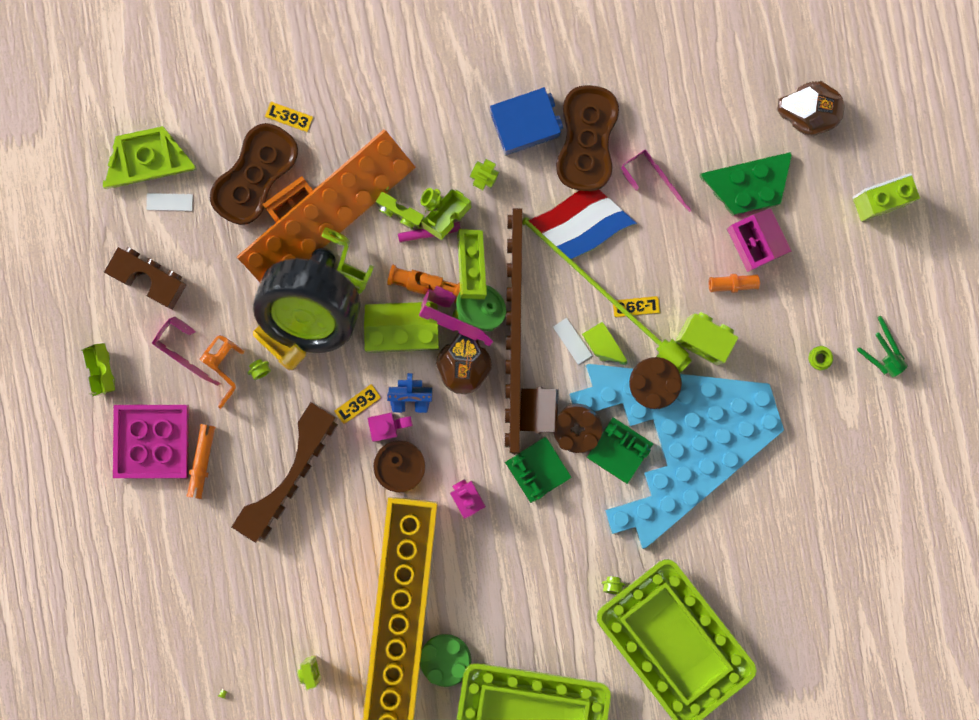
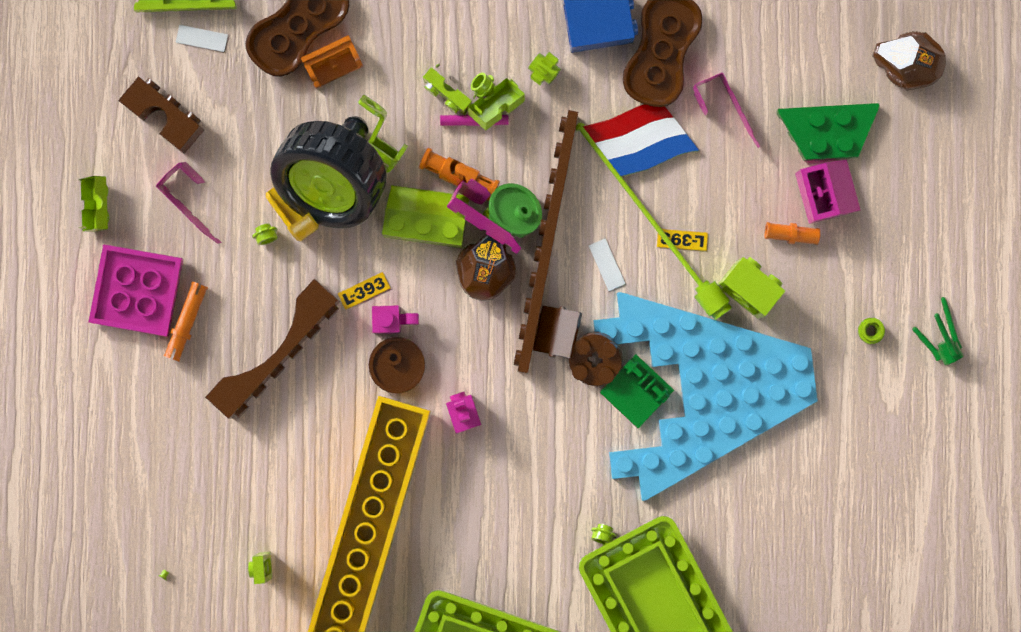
camera: 15 degrees right, 0 degrees up
(214, 360) = (219, 216): orange piece -> none
(330, 205) = (373, 72): orange plate -> none
(410, 391) = (421, 286): blue hips -> none
(445, 660) = (408, 581): bright green piece -> none
(471, 264) = (513, 162): lime plate -> none
(538, 469) = (545, 396): green hinge -> none
(603, 344) = (639, 274): lime slope -> none
(655, 383) = (687, 325): reddish brown piece -> none
(886, 197) = (972, 169): lime piece -> none

